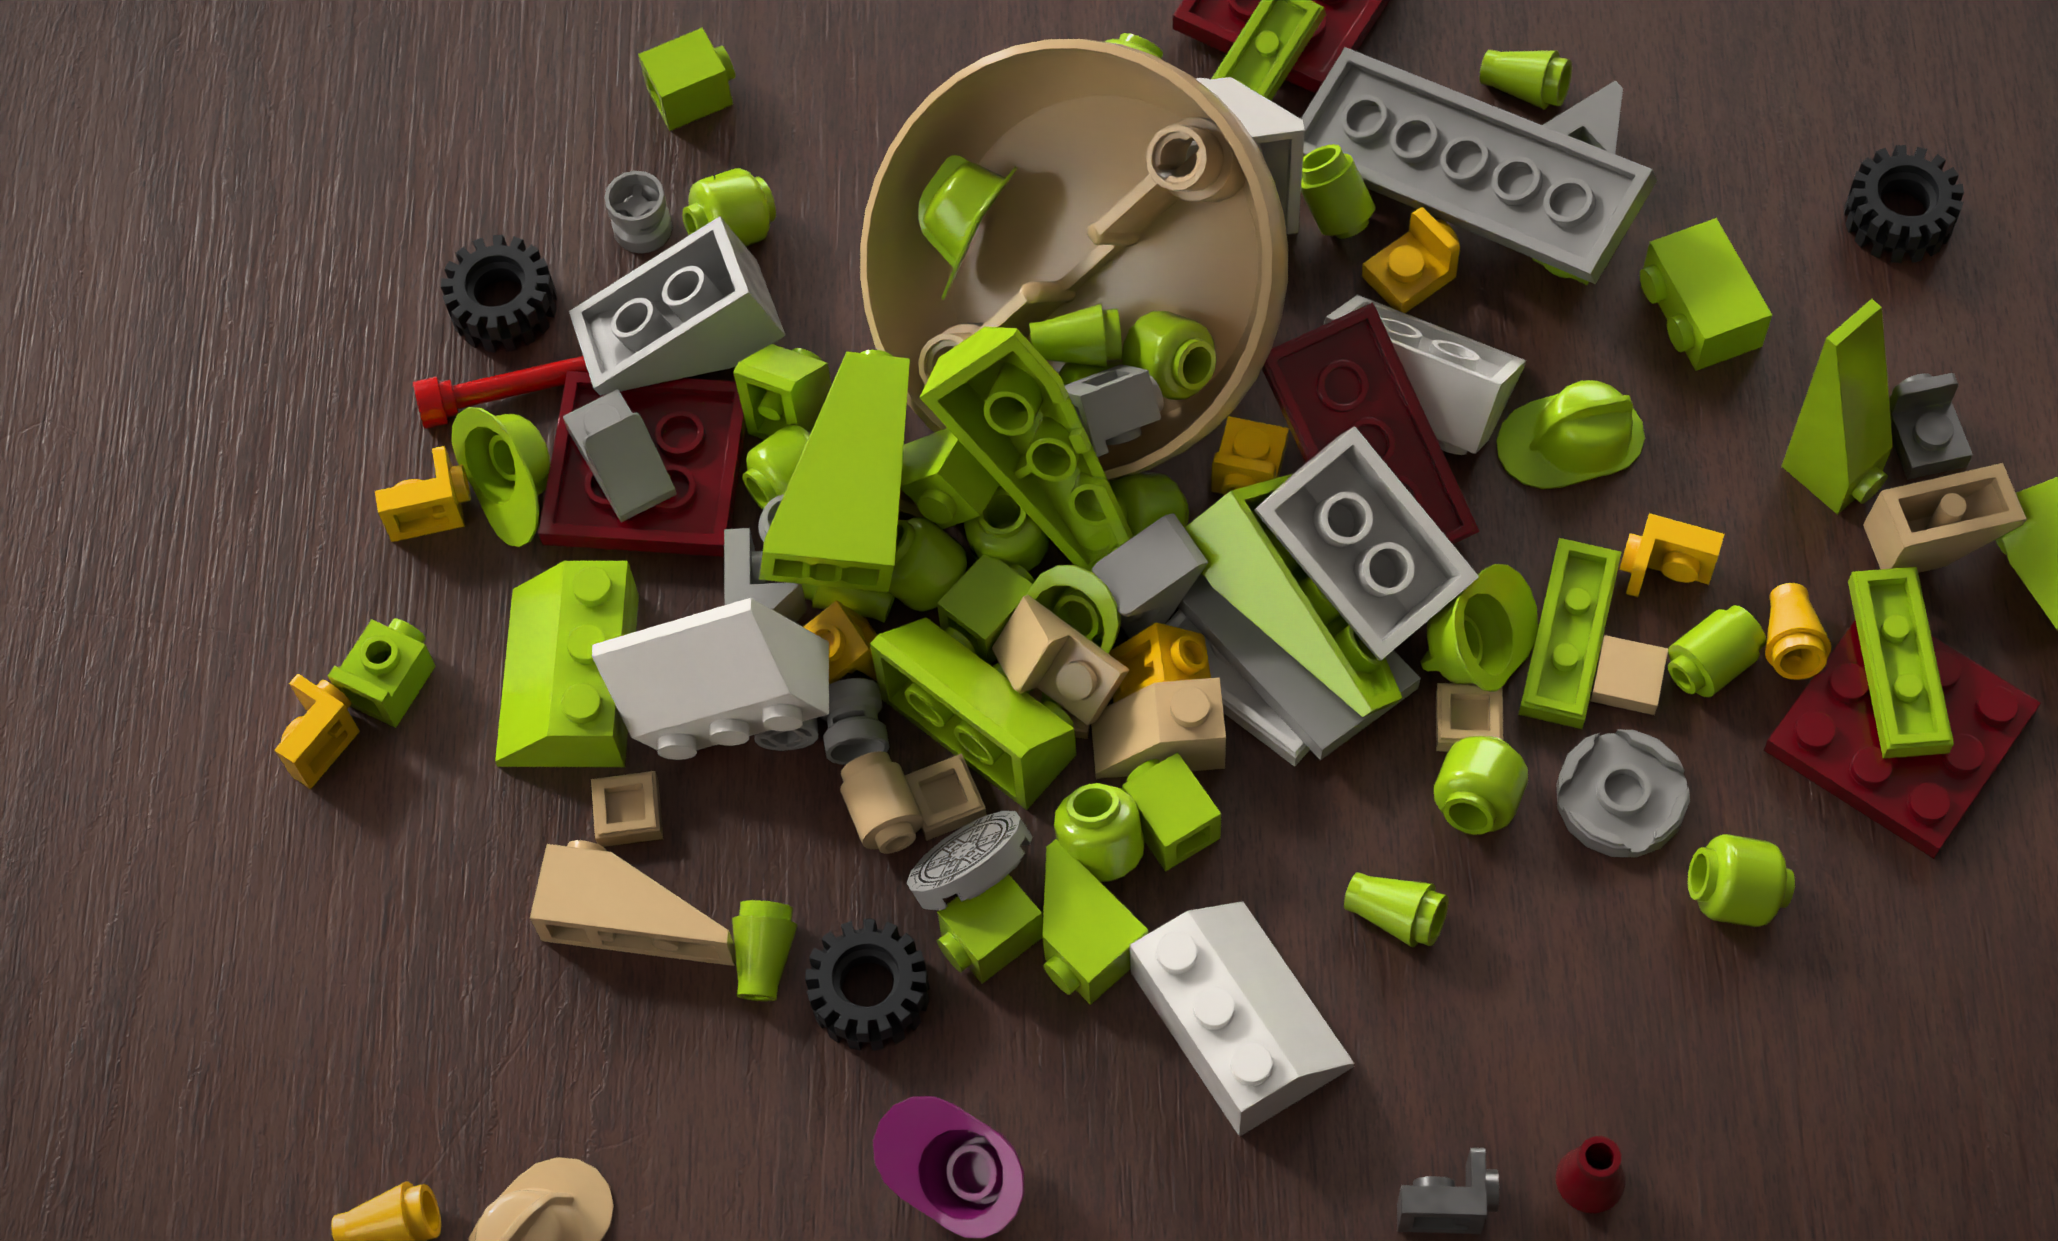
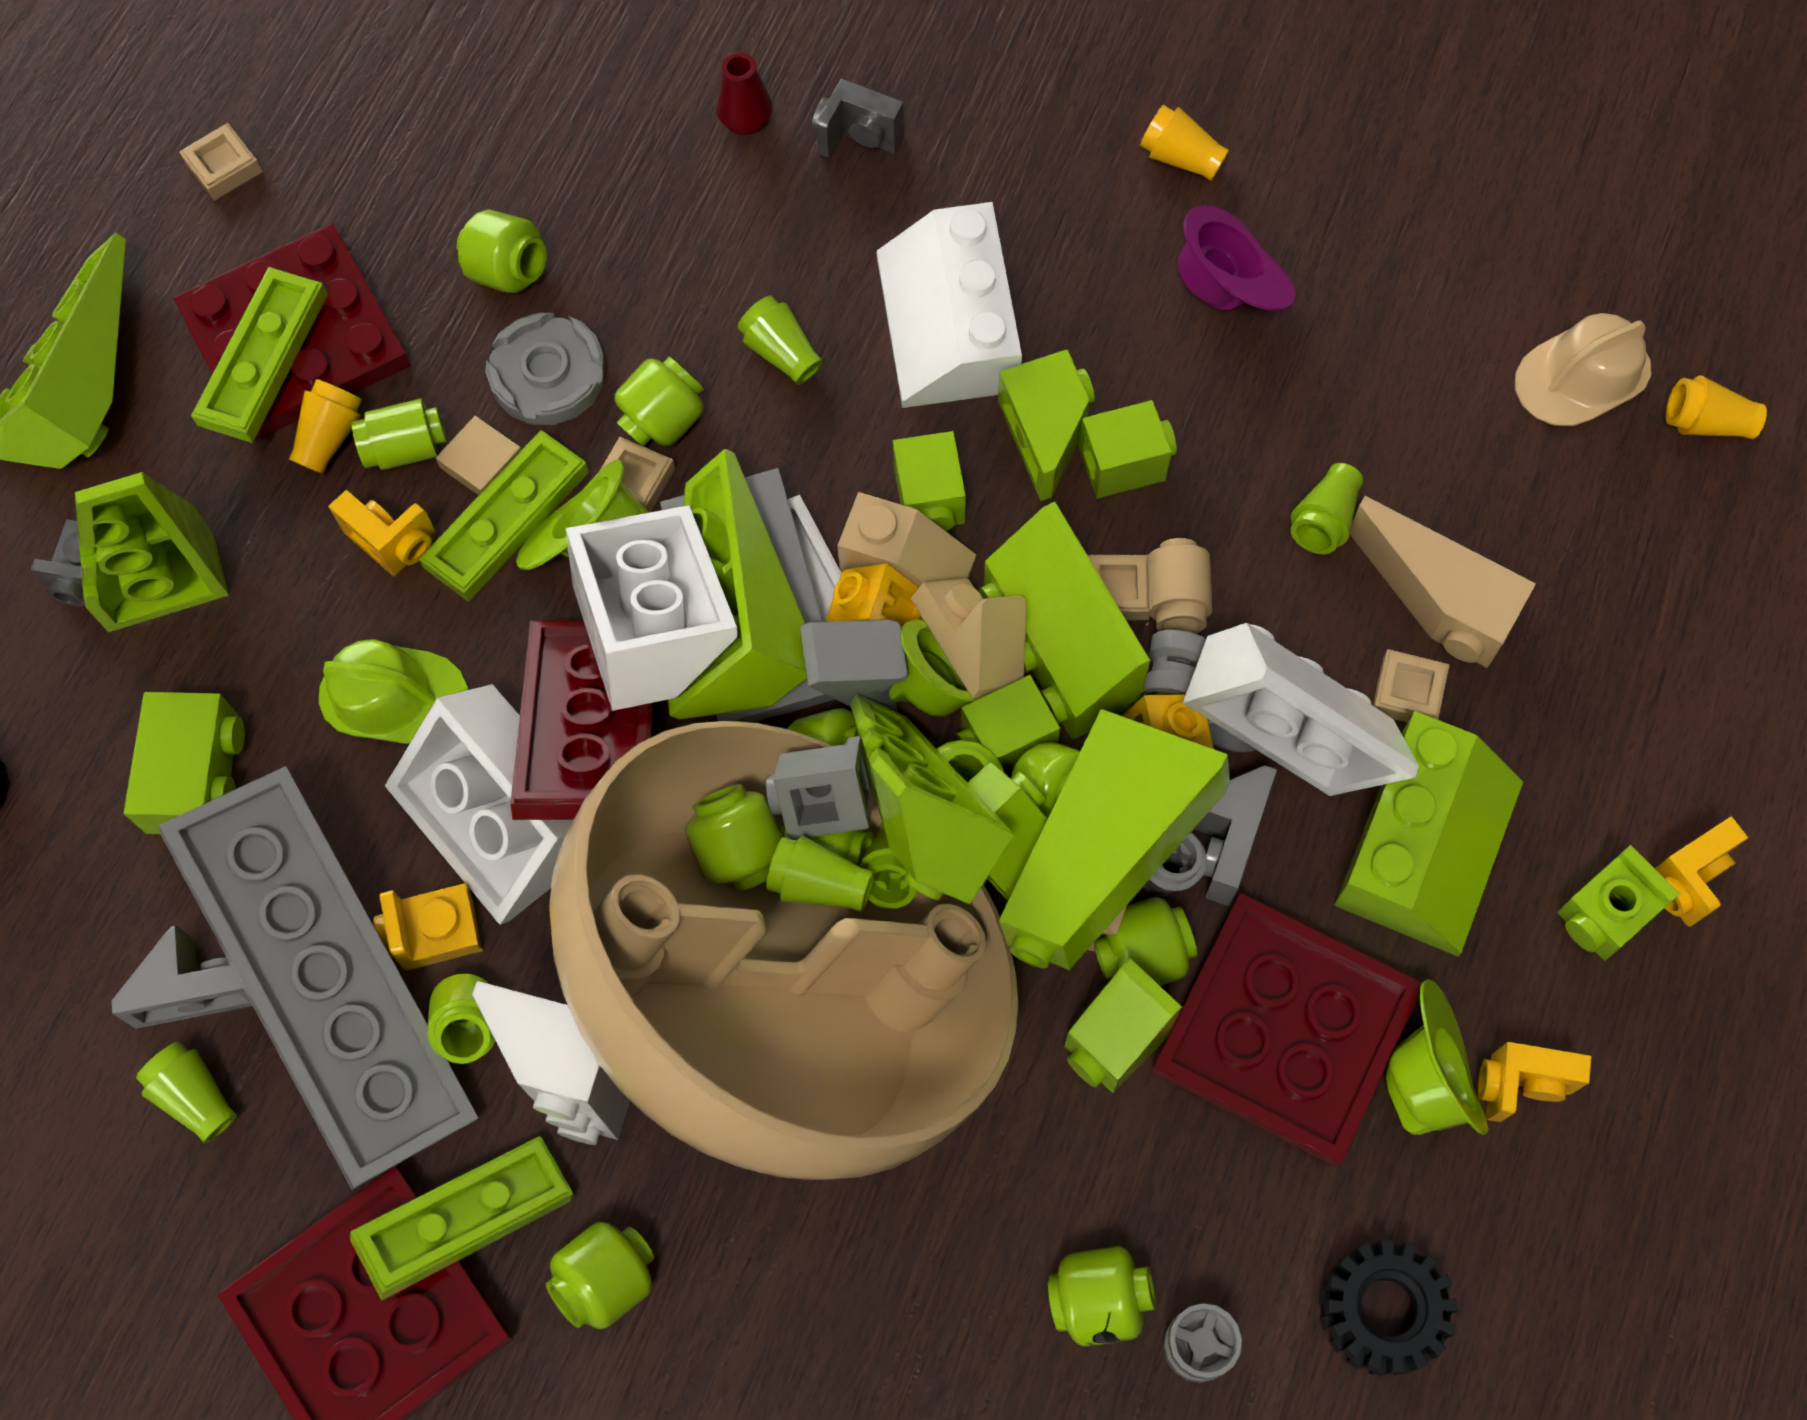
camera: 160 degrees left, 5 degrees up
(442, 400) = (1485, 1199): red piece -> none
(620, 454) = (1318, 1027): light grey slope -> none
(678, 314) = (1206, 1171): light grey slope -> none
(860, 947) = (1252, 415): black tyre -> none
(955, 206) = (868, 1063): lime piece -> none
(970, 860) = (1125, 489): light grey tile -> none
(1101, 830) = (997, 452): lime head -> none
(1942, 518) = (132, 440): tan slope -> none

